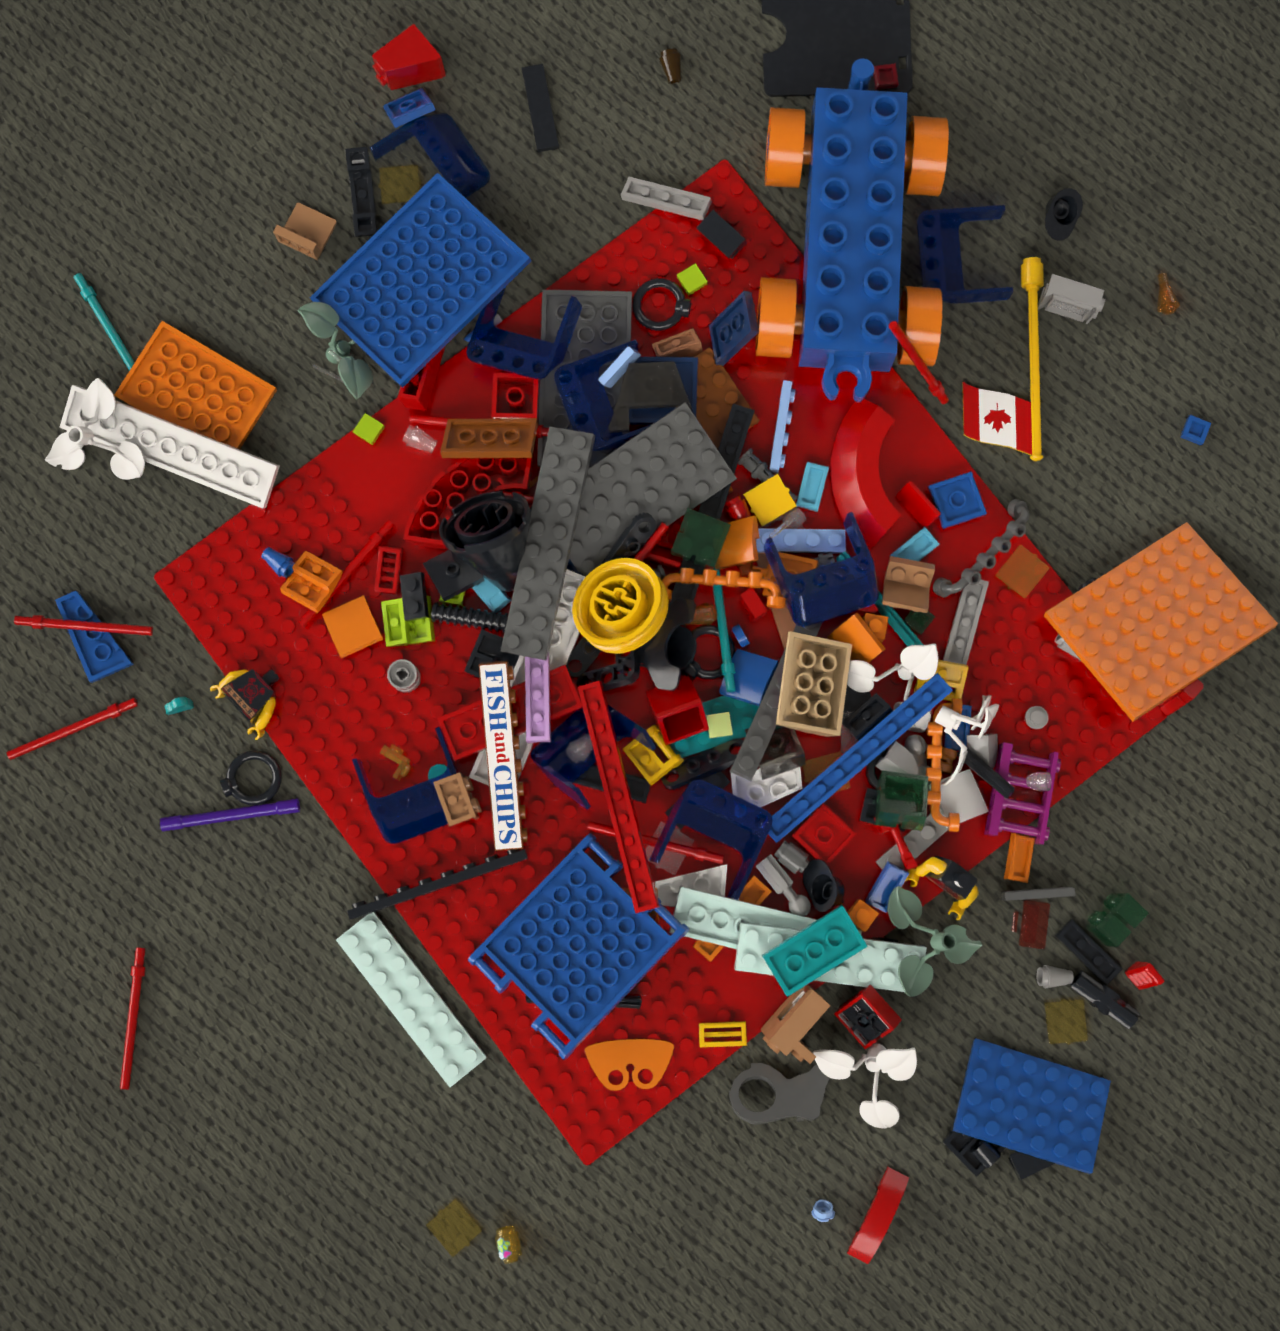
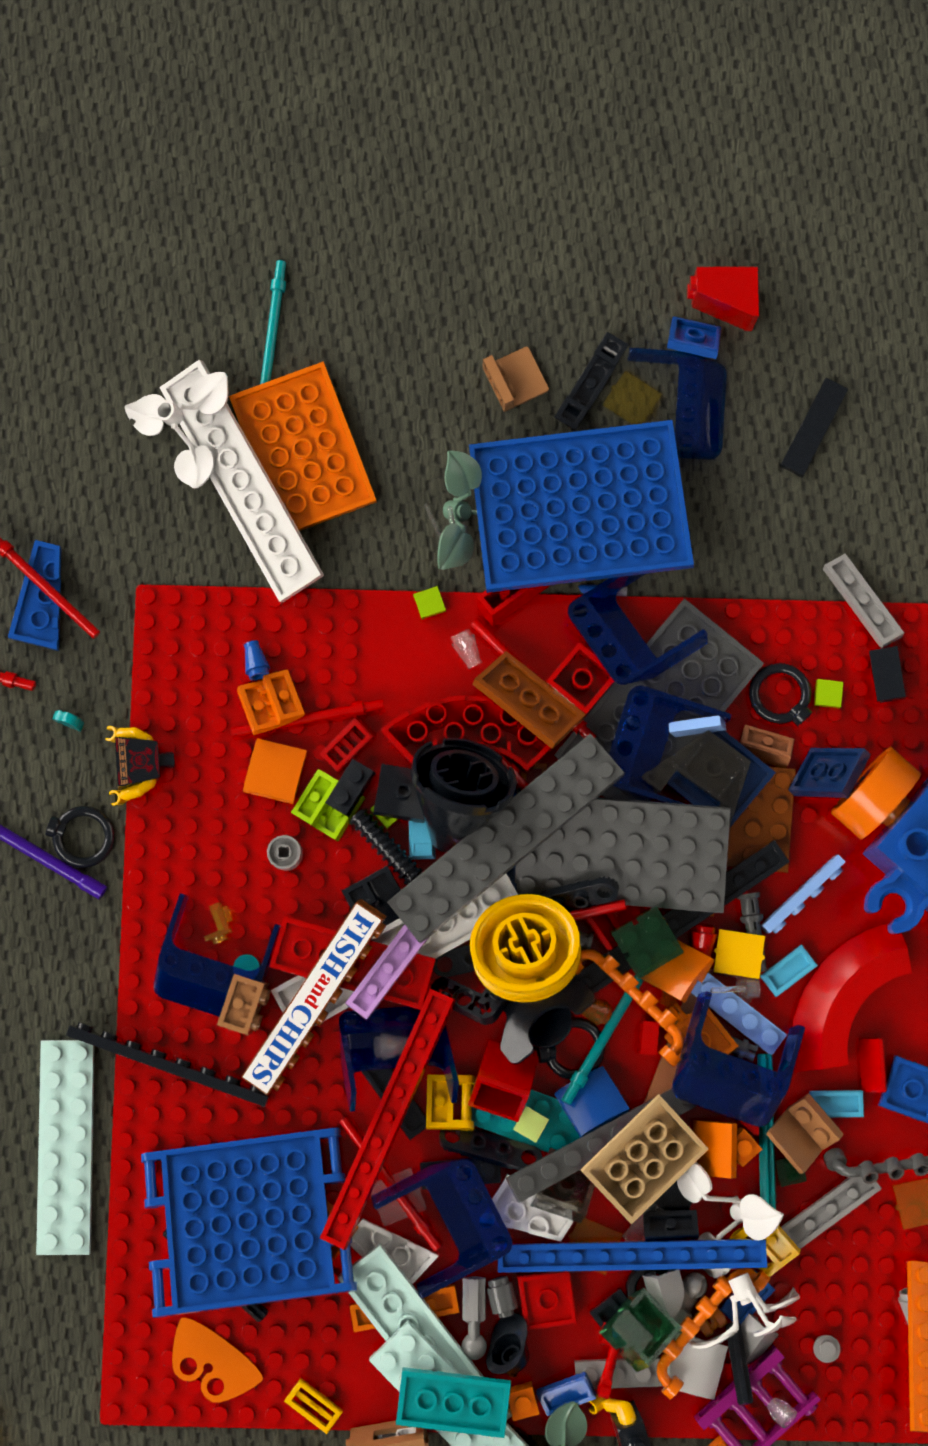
camera: 35 degrees right, 0 degrees up
(739, 634) = (614, 1056): blue tile -> none

